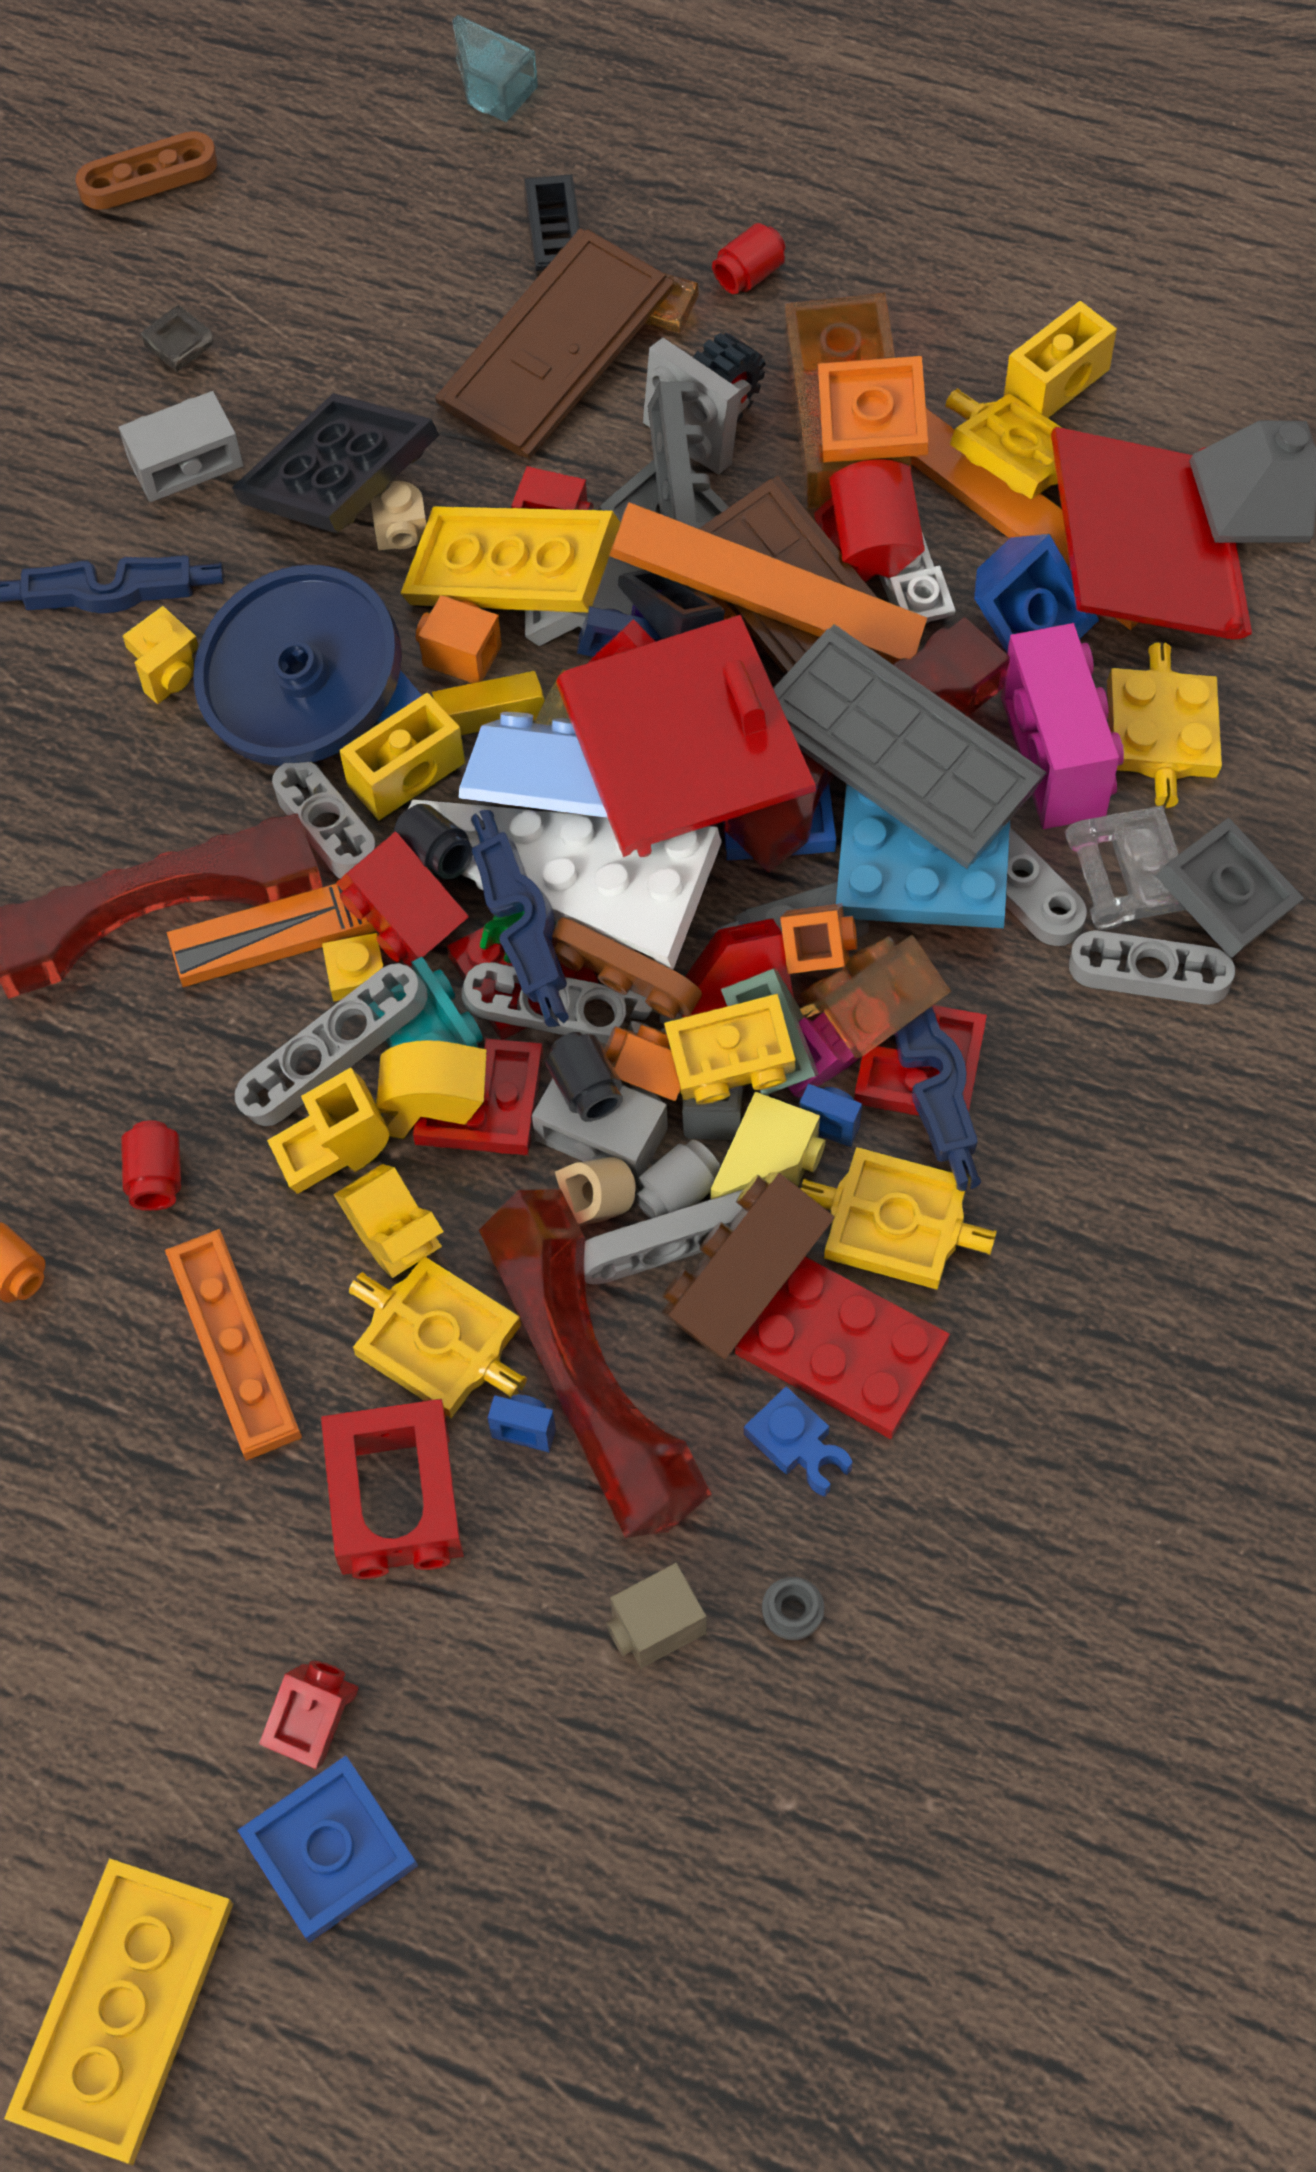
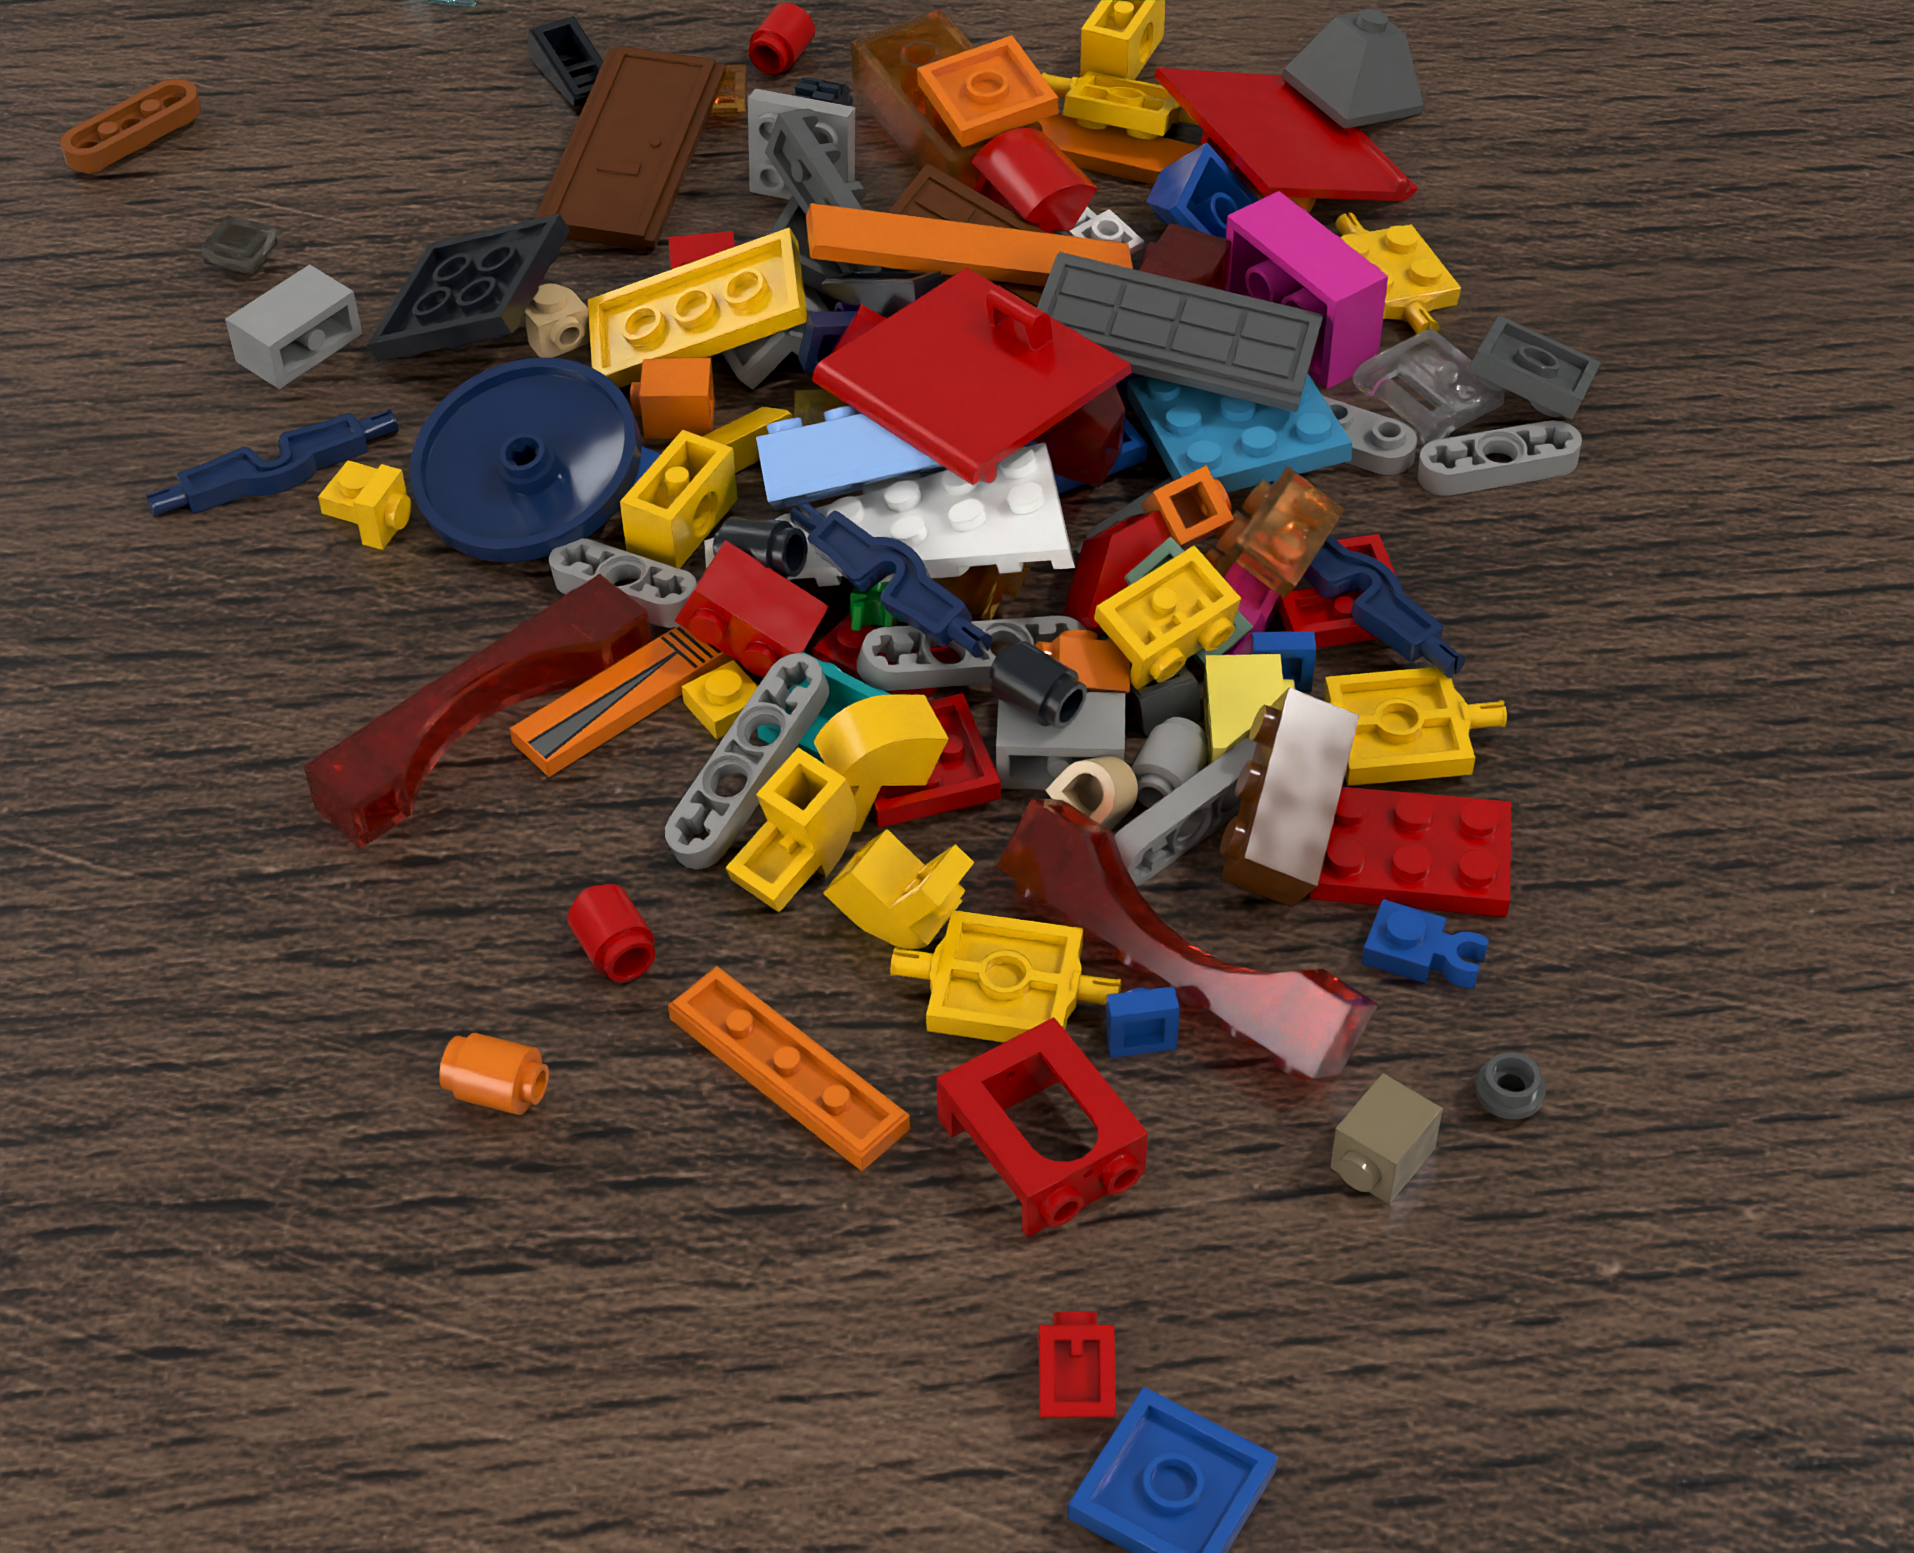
camera: 25 degrees left, 15 degrees down
(624, 969) = (1024, 588): dark orange plate -> none

